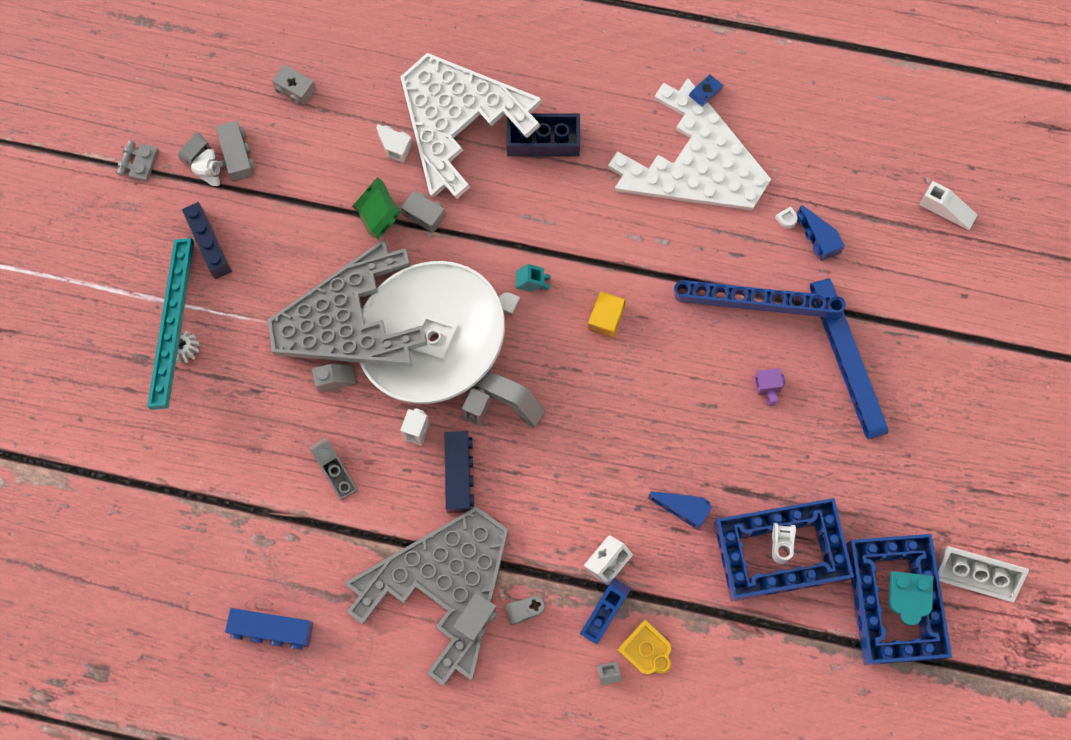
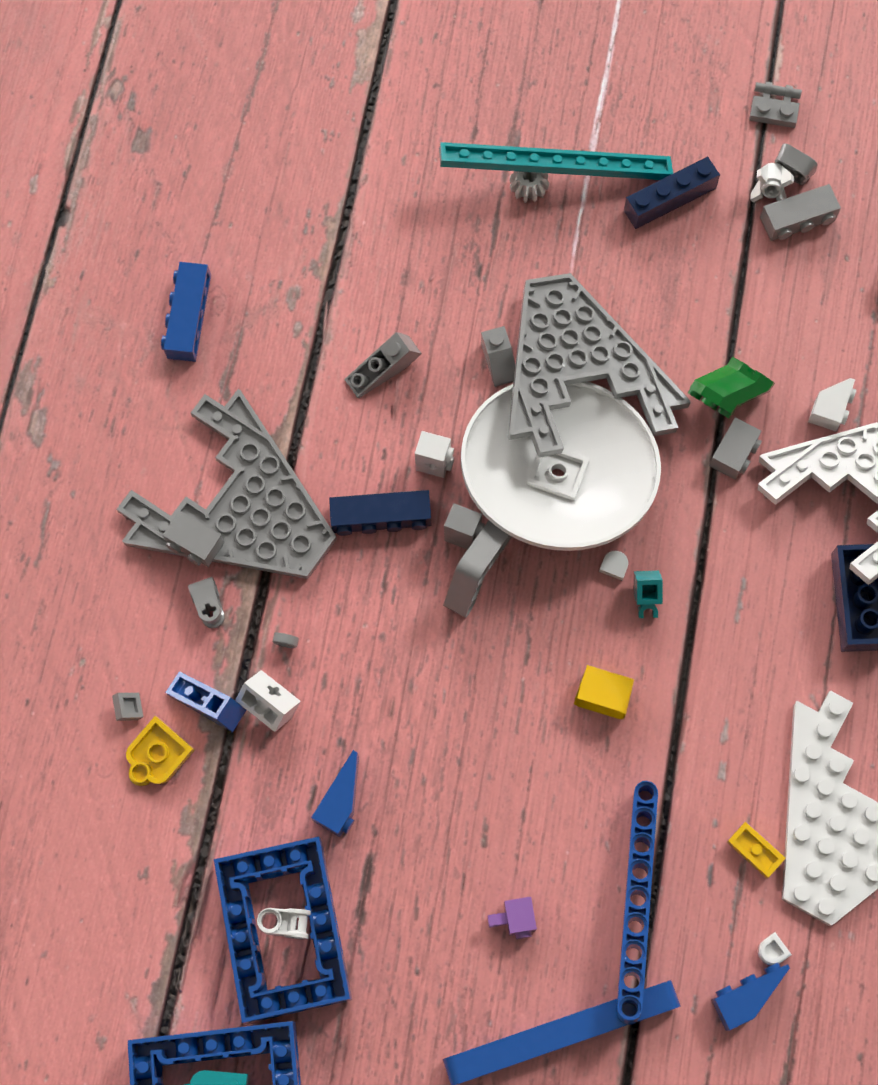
camera: 90 degrees right, 0 degrees up
(559, 546) = (285, 640): none -> light grey tile
(720, 222) = (756, 850): none -> yellow plate

